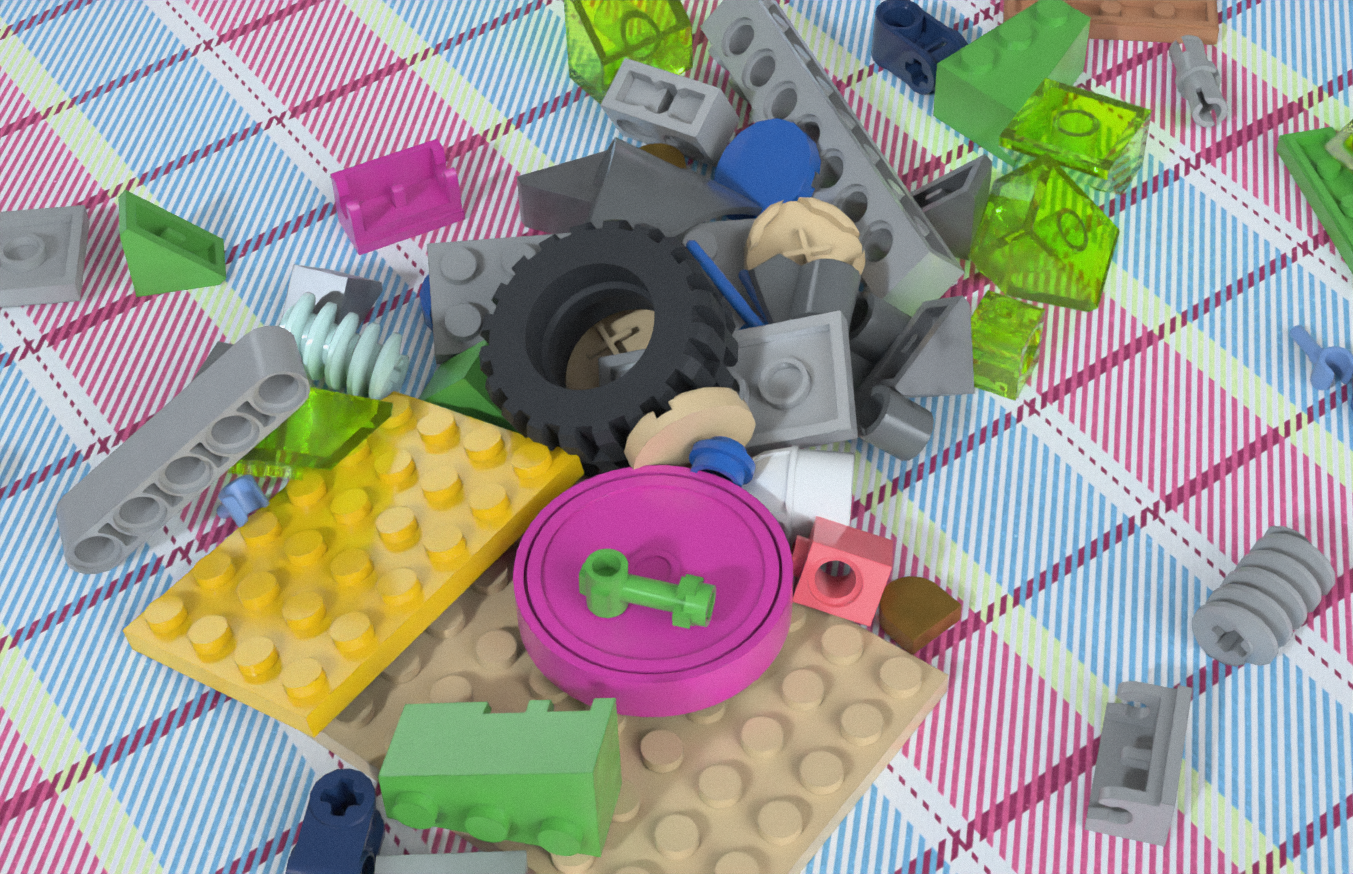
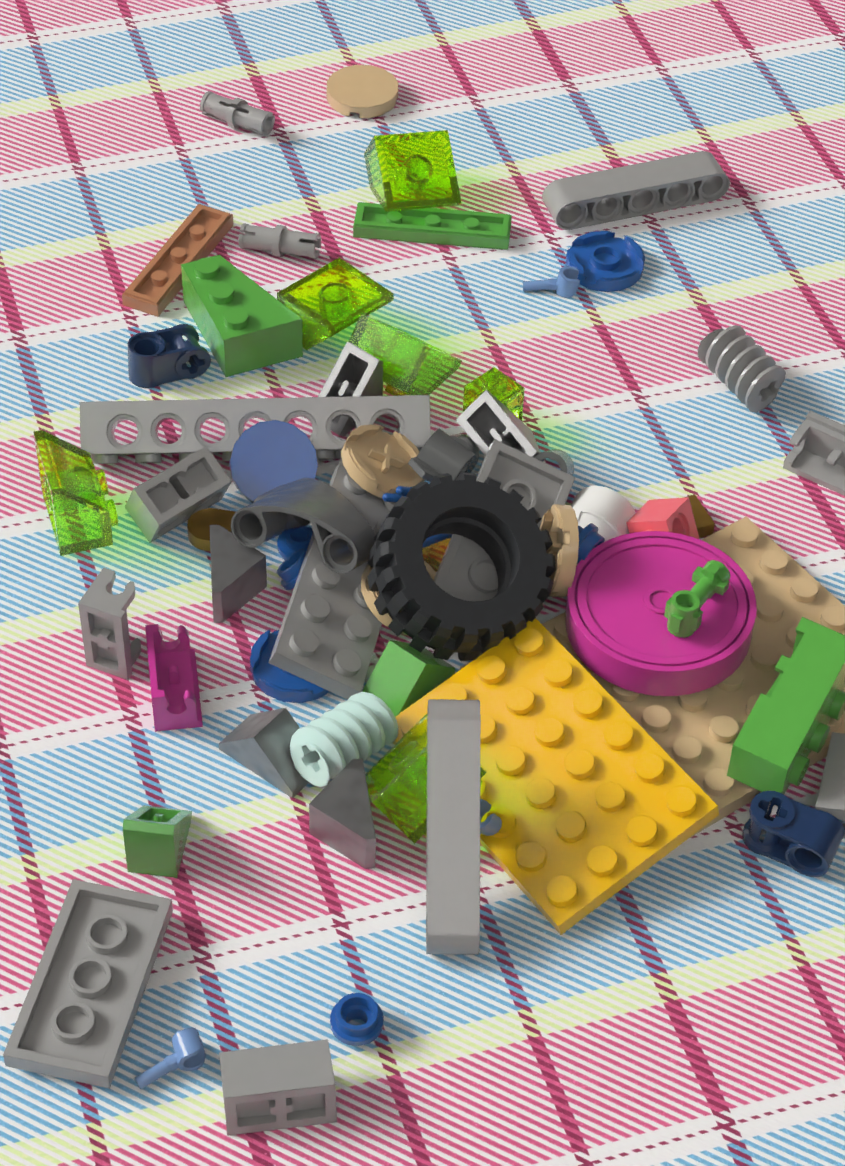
camera: 75 degrees left, 0 degrees up
(435, 104) = (106, 627): none -> light grey hinge

